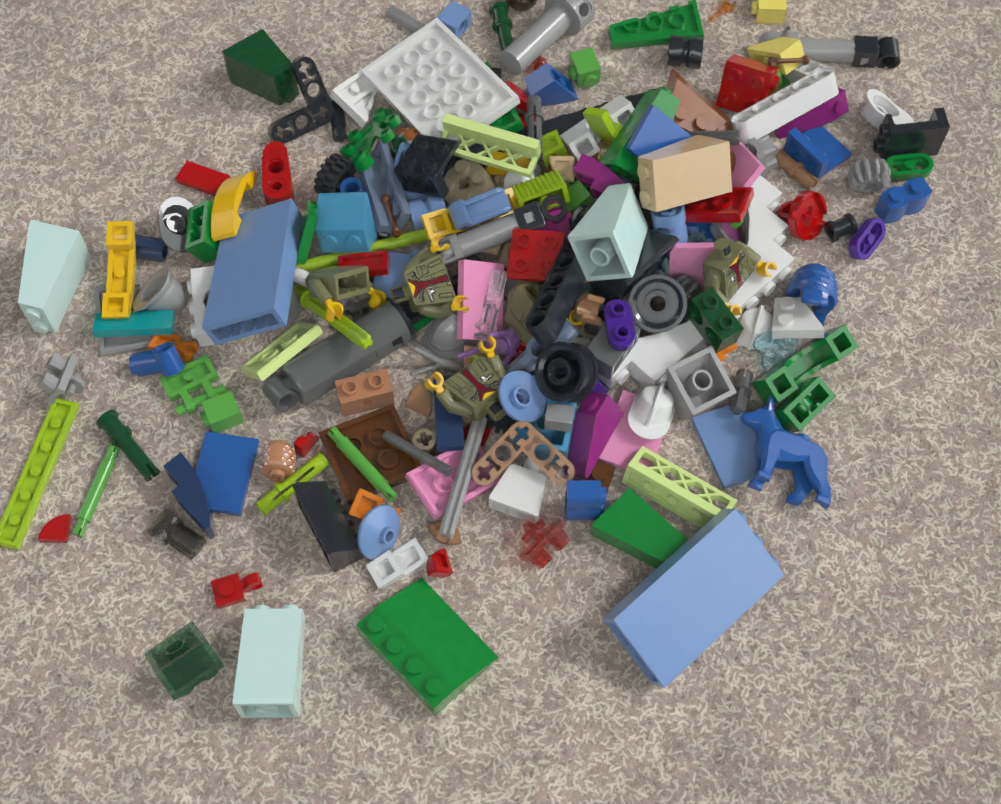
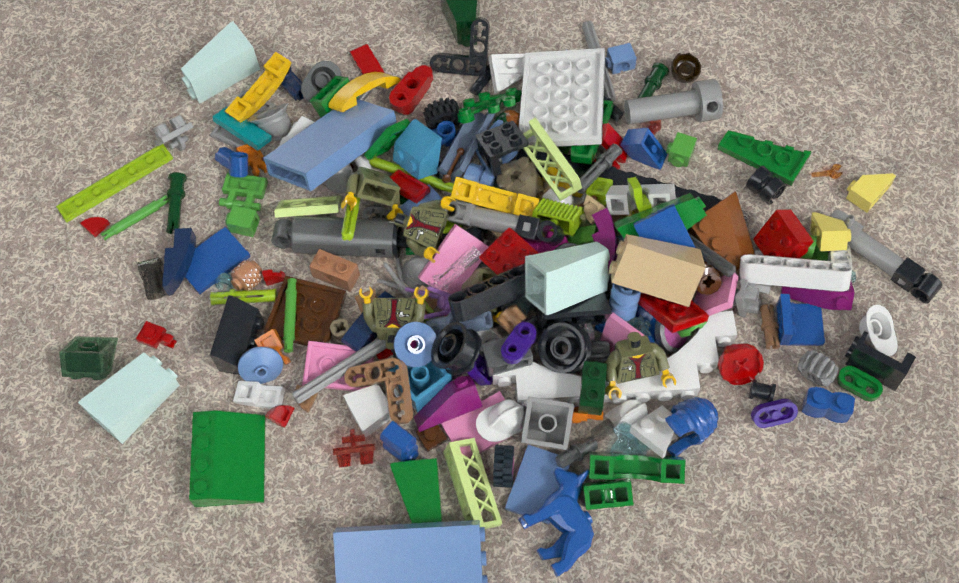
camera: 45 degrees right, 0 degrees up
(256, 480) = (223, 278): none -> clear light blue hinge
(417, 453) = (326, 333): flat silver bar -> none
(479, 208) = (498, 198): medium blue animal -> none
(559, 417) = (429, 376): light grey slope -> none
(694, 449) = (503, 466): none -> black wheel
(745, 355) = (602, 430): none -> clear smoke tile
(773, 61) = (811, 233): reddish brown hinge -> none

